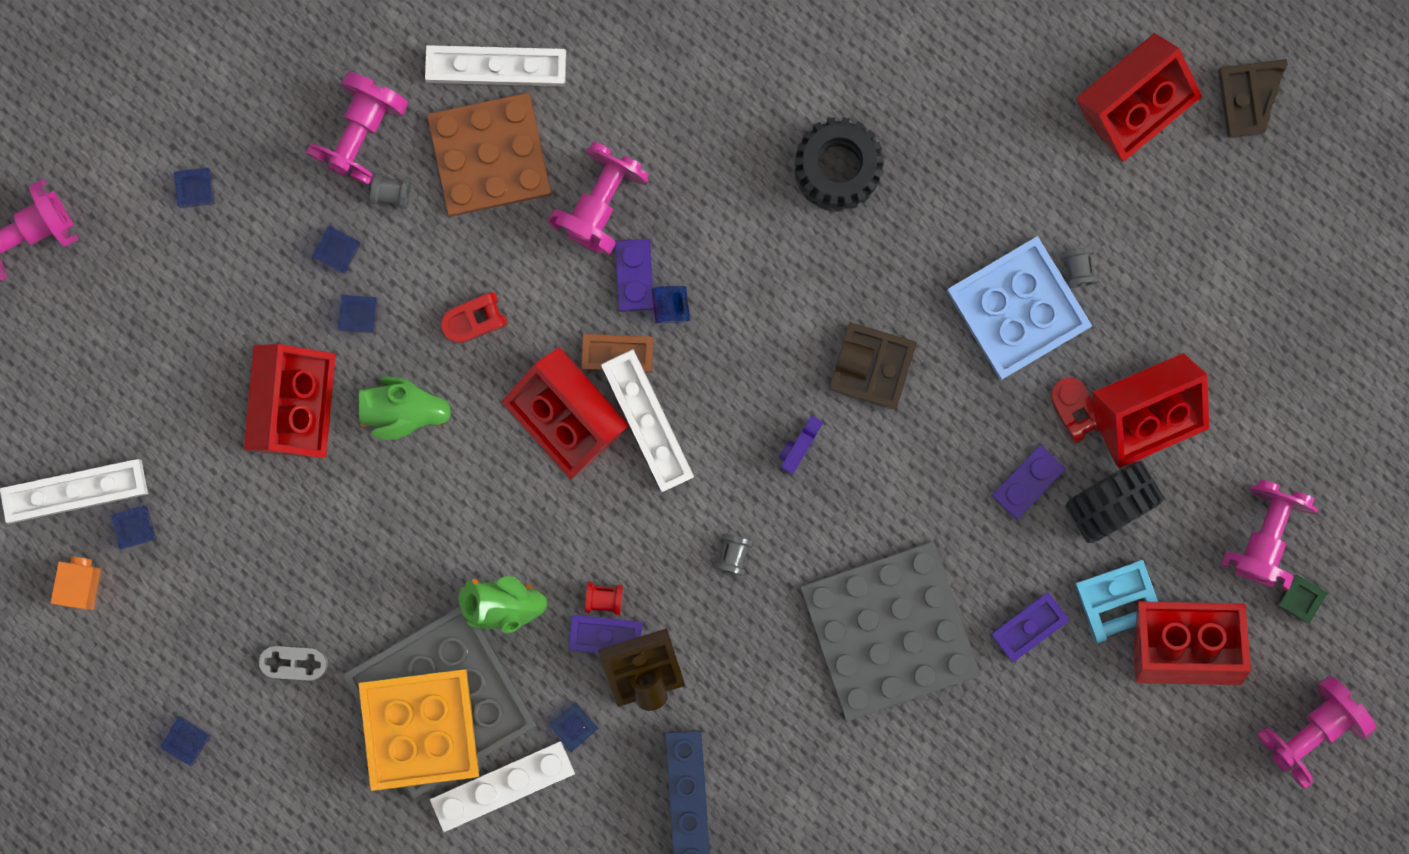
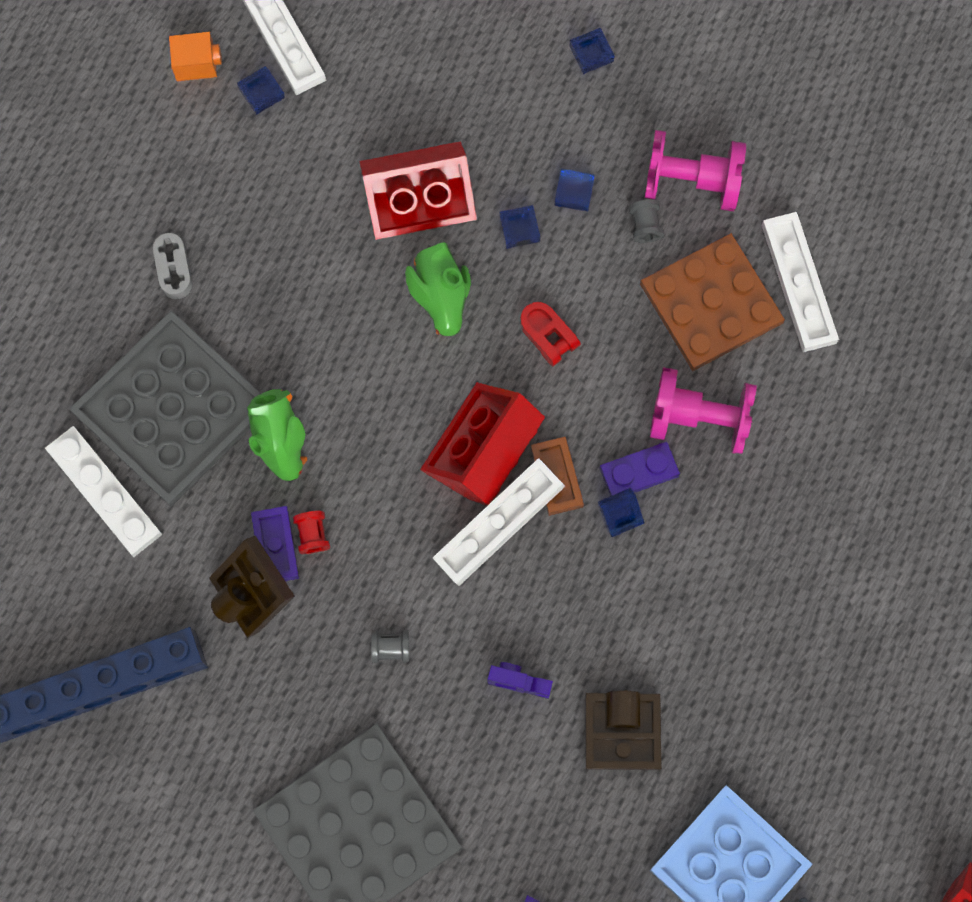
camera: 75 degrees right, 10 degrees down
(185, 741) = (74, 191): clear blue plate -> none
(418, 730) = (134, 392): light orange plate -> none
(573, 726) = (178, 541): clear blue plate -> none
(844, 135) = (838, 614): black tyre -> none

